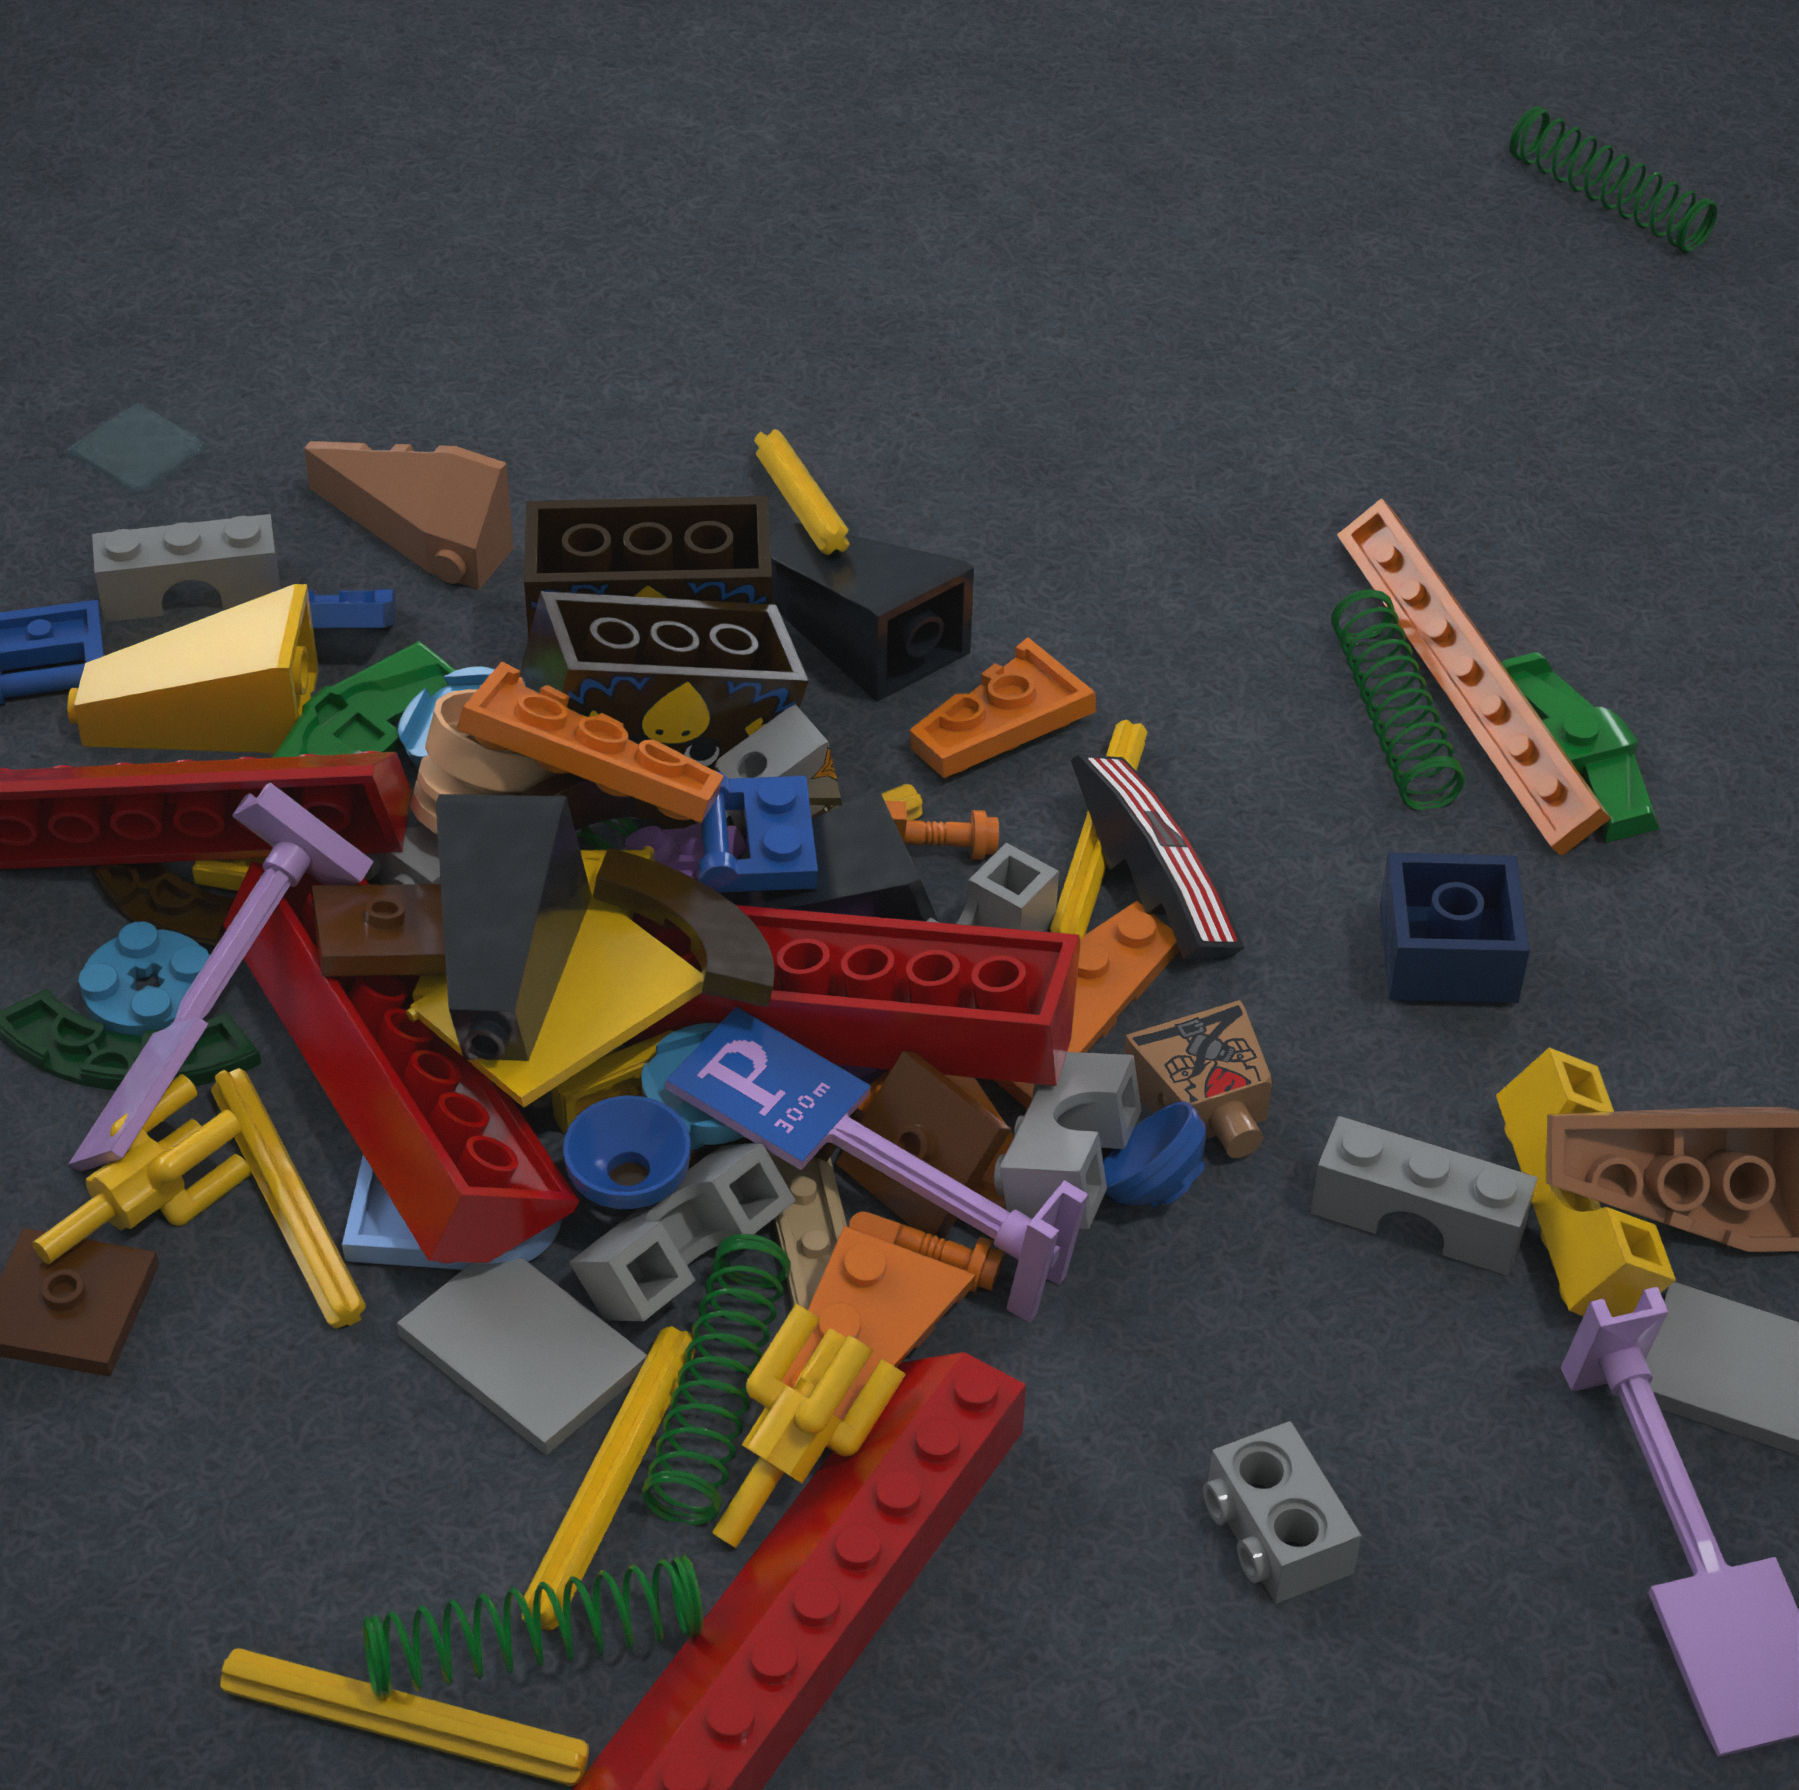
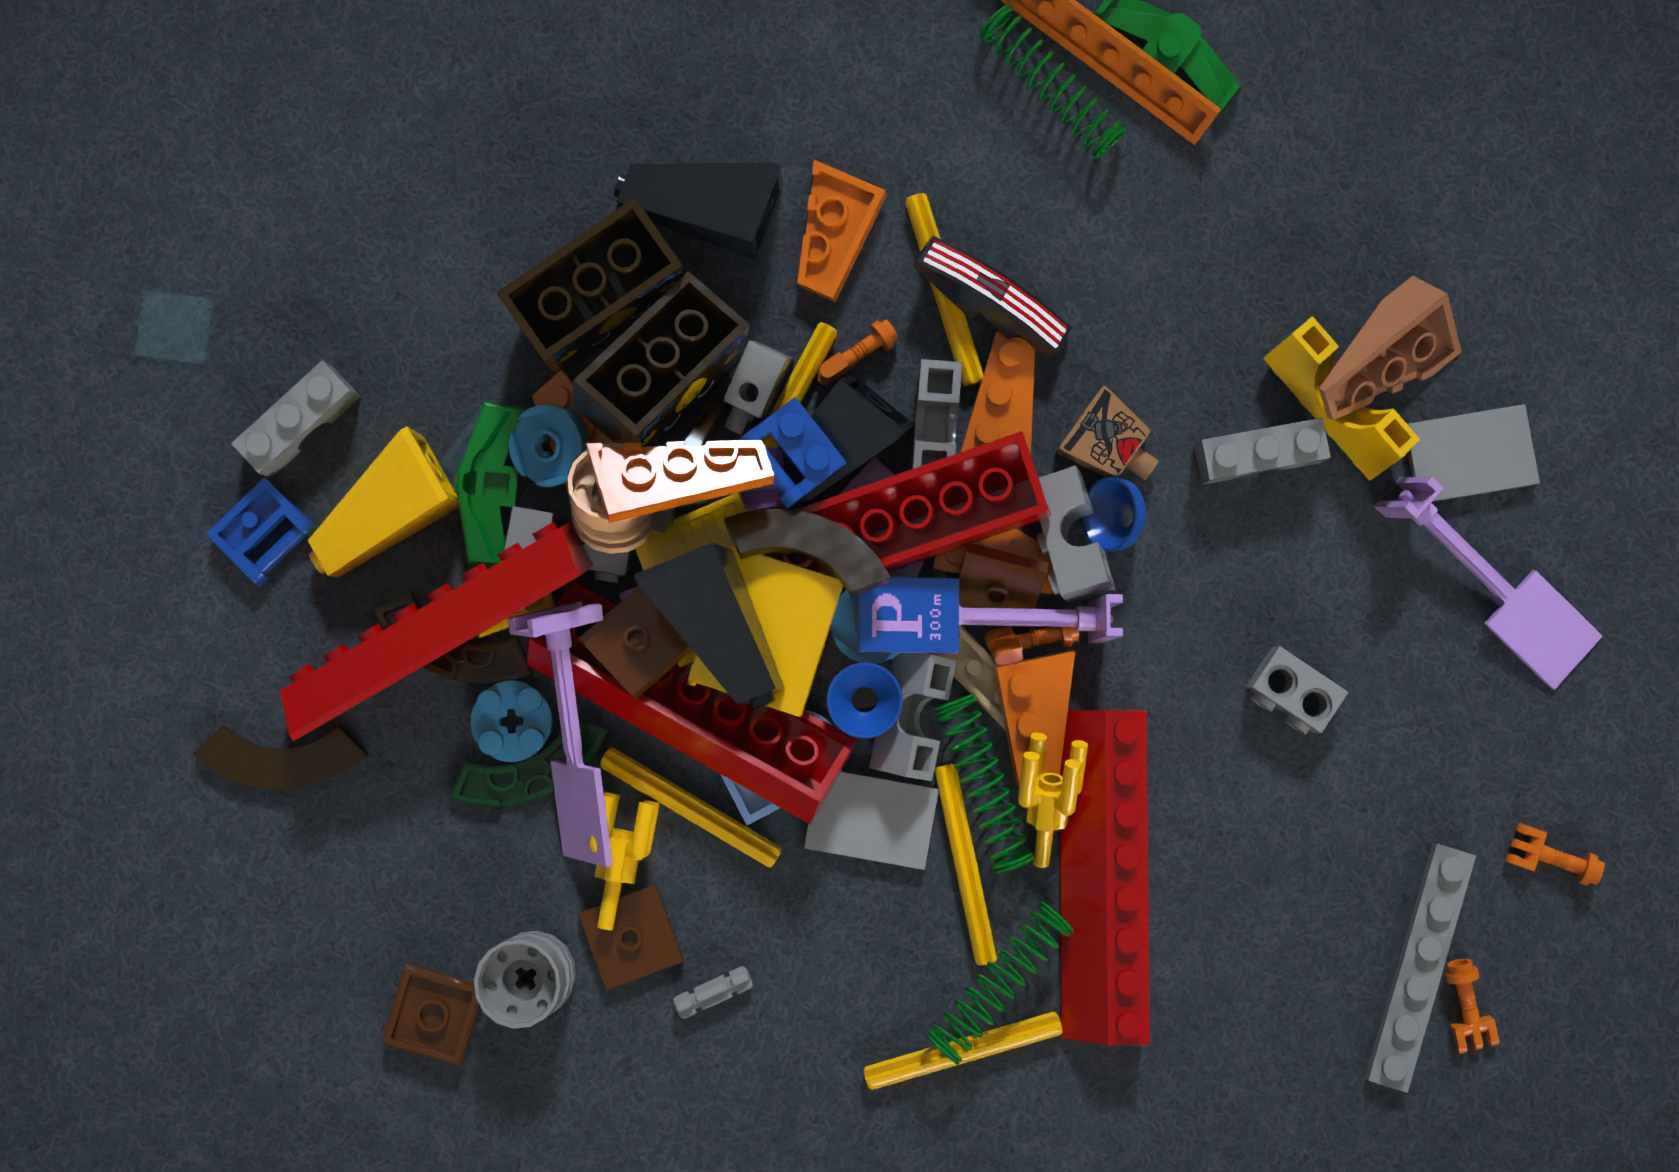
camera: 30 degrees left, 40 degrees up
(112, 1428) = (713, 992): none -> light grey axle
(353, 609) = (413, 408): blue plate -> none
(433, 507) = (415, 285): nougat wedge -> none
(802, 492) = (617, 136): yellow axle -> none
(1453, 927) = (1182, 253): dark blue brick -> none

